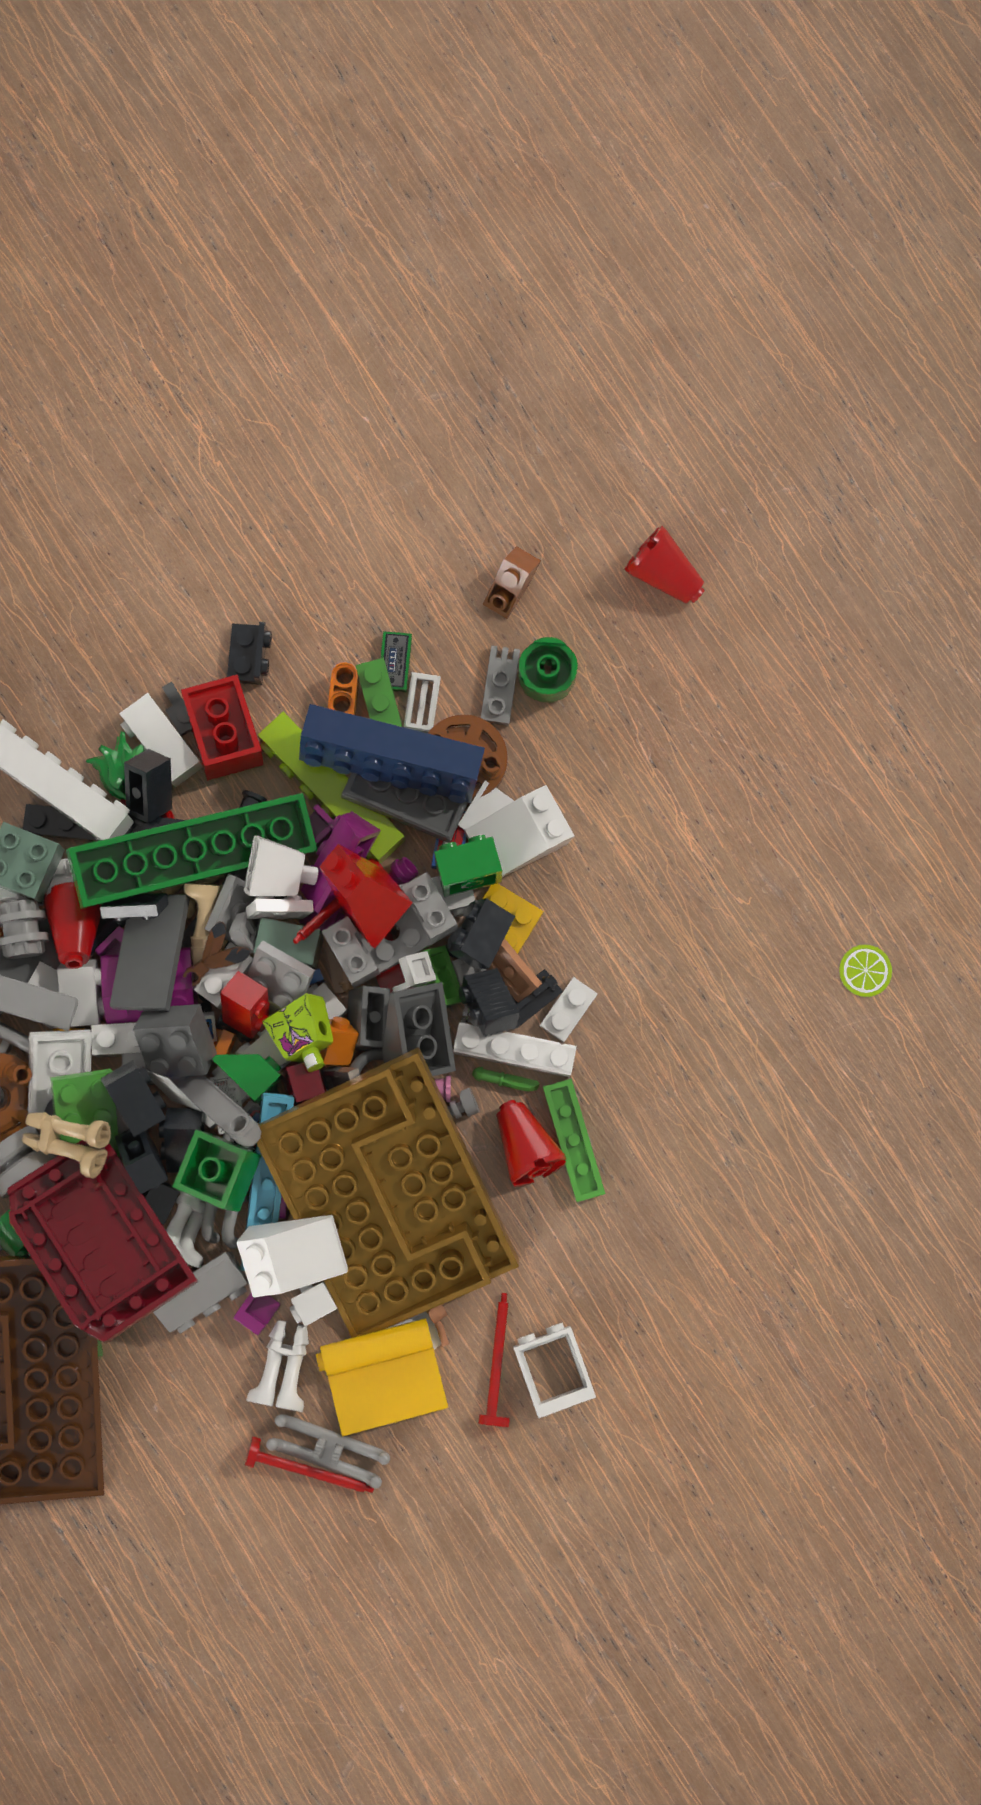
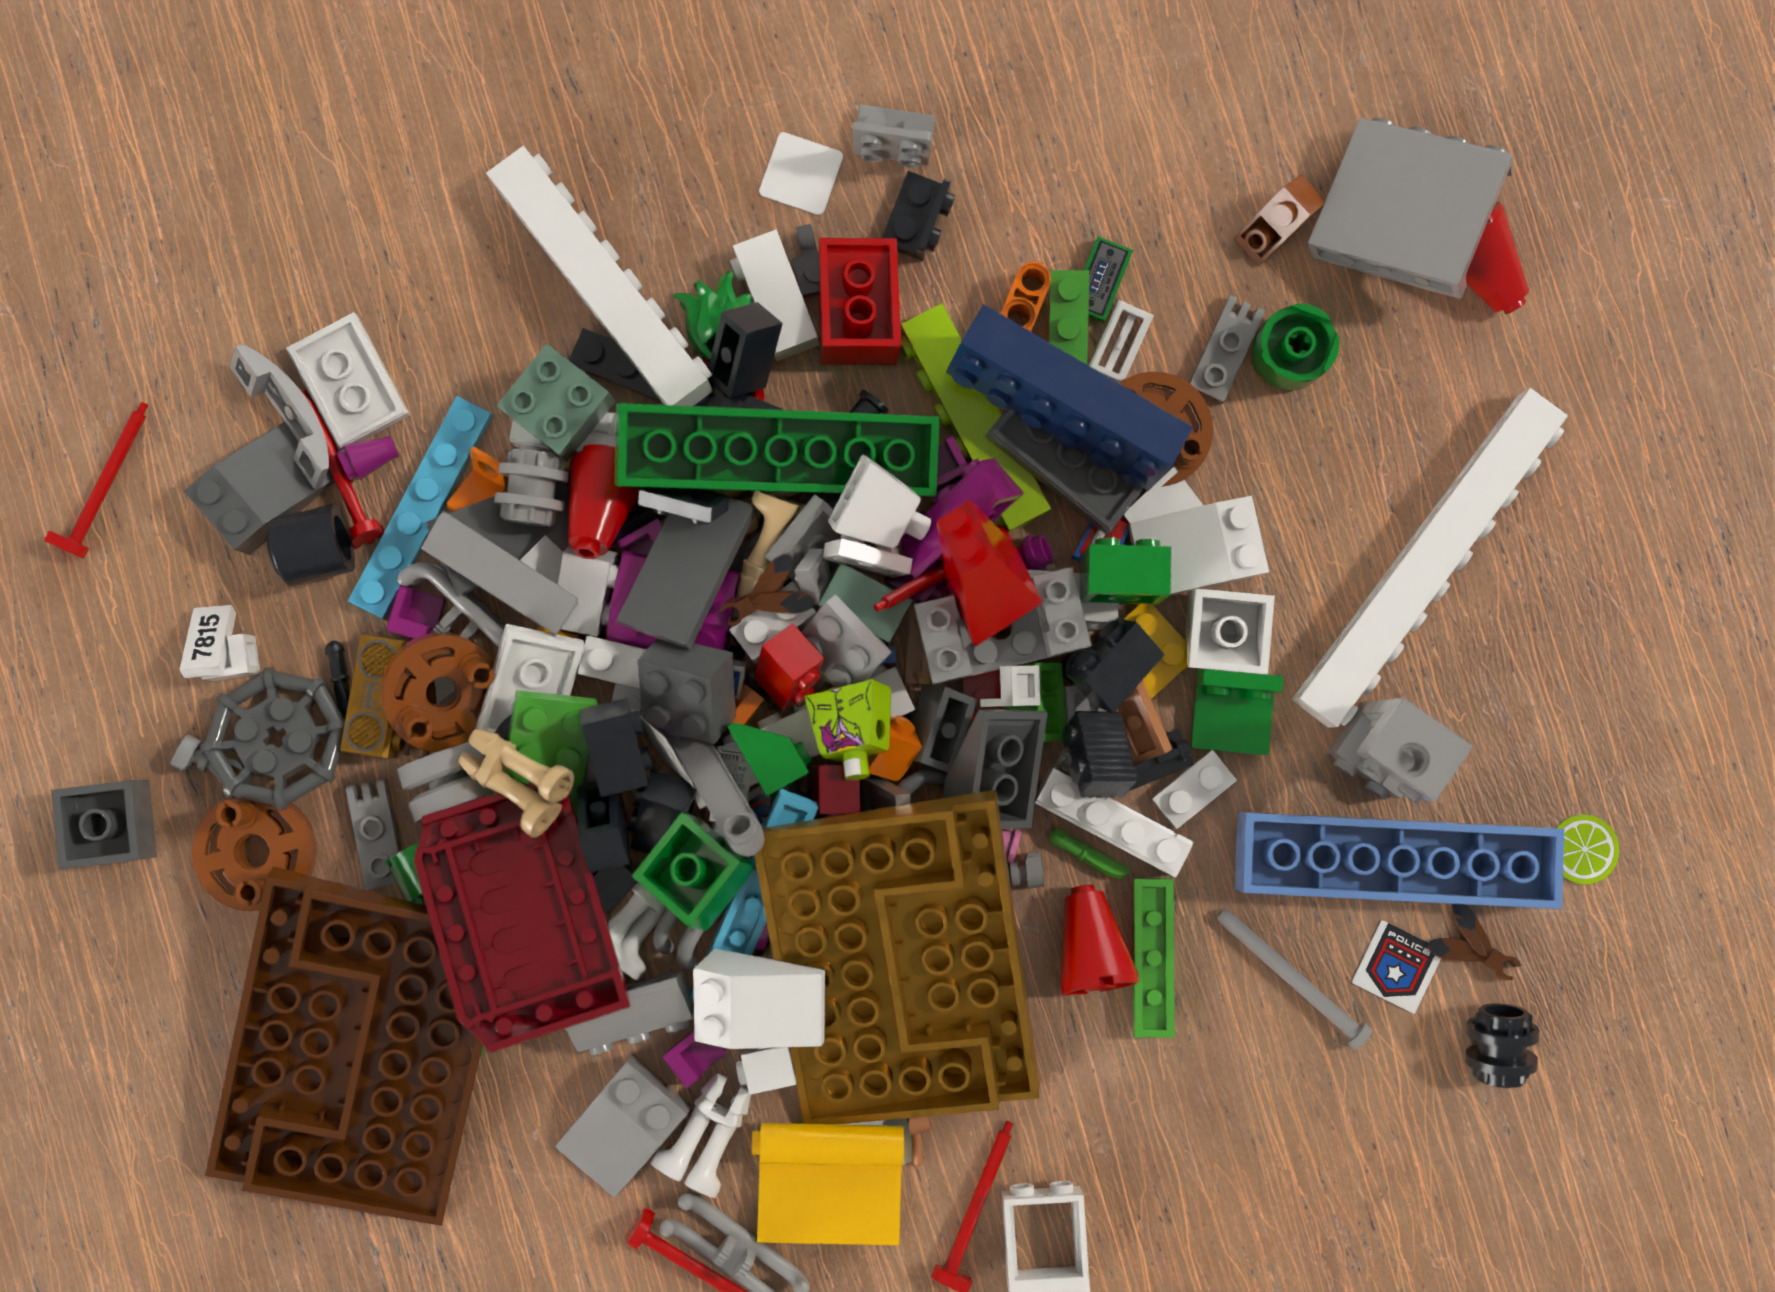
camera: 15 degrees right, 5 degrees up
(155, 647) = (801, 173): none -> white sticker
(214, 601) = (893, 135): none -> light grey bracket
(218, 1380) = (624, 1126): none -> light grey slope
(558, 886) = (1229, 630): none -> white slope
(580, 943) = (1233, 711): none -> green bracket
(598, 546) = (1410, 205): none -> light grey panel
(685, 1127) = (1356, 1033): none -> light grey bar
(689, 793) = (1430, 558): none -> white brick
(703, 930) = (1399, 750): none -> light grey plate
(729, 1015) = (1399, 860): none -> medium blue brick
(755, 1095) = (1396, 967): none -> sticker
(806, 1064) = (1475, 946): none -> reddish brown piece
(844, 1128) = (1502, 1045): none -> black piece

